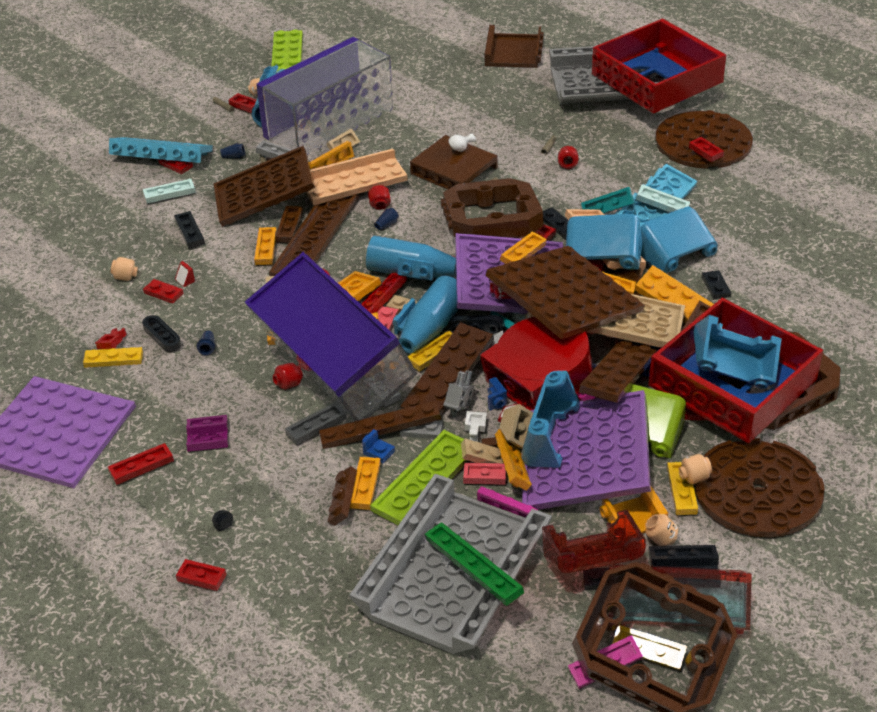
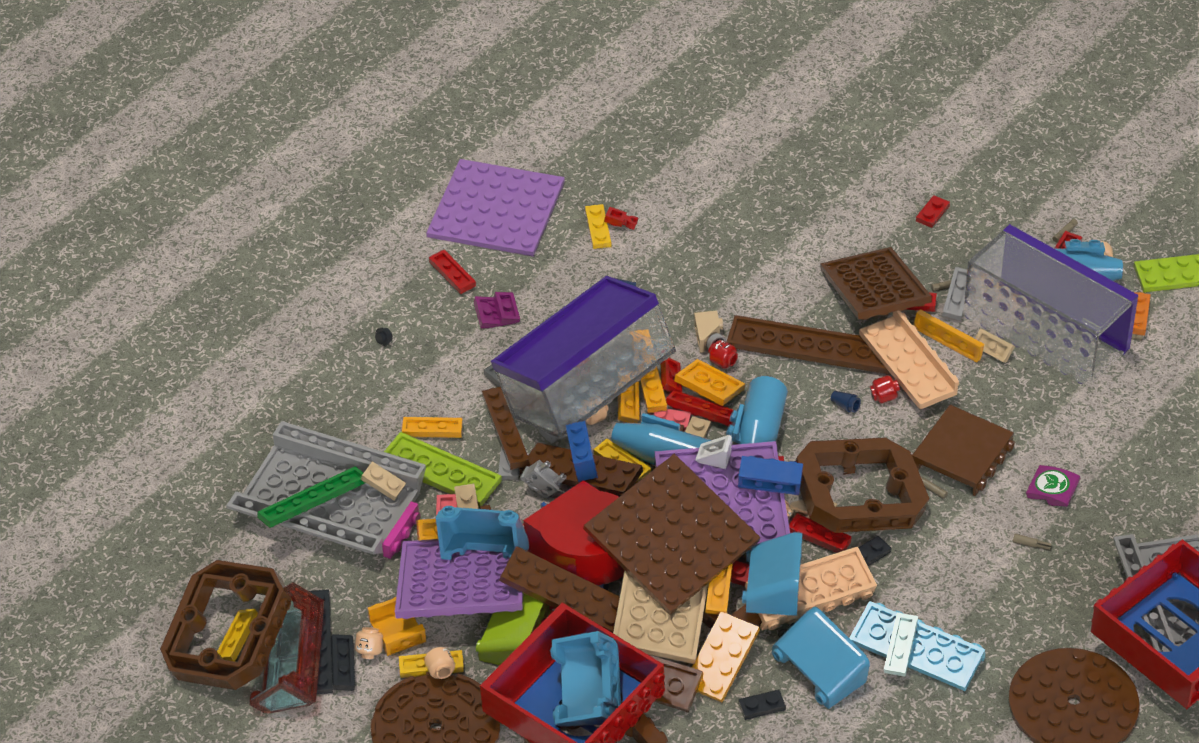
camera: 85 degrees right, 5 degrees up
(123, 269) = (728, 205): light nougat head -> none
(158, 149) = (949, 189): medium azure bracket -> none
(161, 333) = (624, 259): black plate -> none
(163, 291) = (702, 242): red plate -> none
(169, 191) = (874, 214): light aqua plate -> none
(185, 274) = (727, 254): slope -> none
(189, 229) = (805, 242): black plate -> none
(201, 575) = (322, 333): red plate -> none
(233, 151) = (960, 254): dark blue cone -> none
(265, 246) = (784, 307): light orange plate -> none
(289, 223) = (827, 320): reddish brown plate -> none
(342, 495) = (413, 411): reddish brown plate -> none
(376, 448) = (480, 431): blue bracket -> none
(440, 356) = (581, 451): none -> blue brick
(449, 510) = (383, 481): none -> tan plate
(460, 142) = (985, 441): white piece -> none
(471, 258) = (715, 452): none -> white slope
(475, 423) = (514, 500): white plate -> none
(494, 129) = (1053, 485): none -> slope
(497, 235) = (770, 475): none -> blue brick
(524, 248) = (754, 501): light orange plate -> none
(568, 157) = (996, 557): red head -> none
(610, 201) = (887, 592): teal plate -> none
(619, 544) = (332, 580): clear red windscreen -> none
(623, 651) = (222, 608): dark pink plate -> none
(706, 149) = (1025, 691): red plate -> none

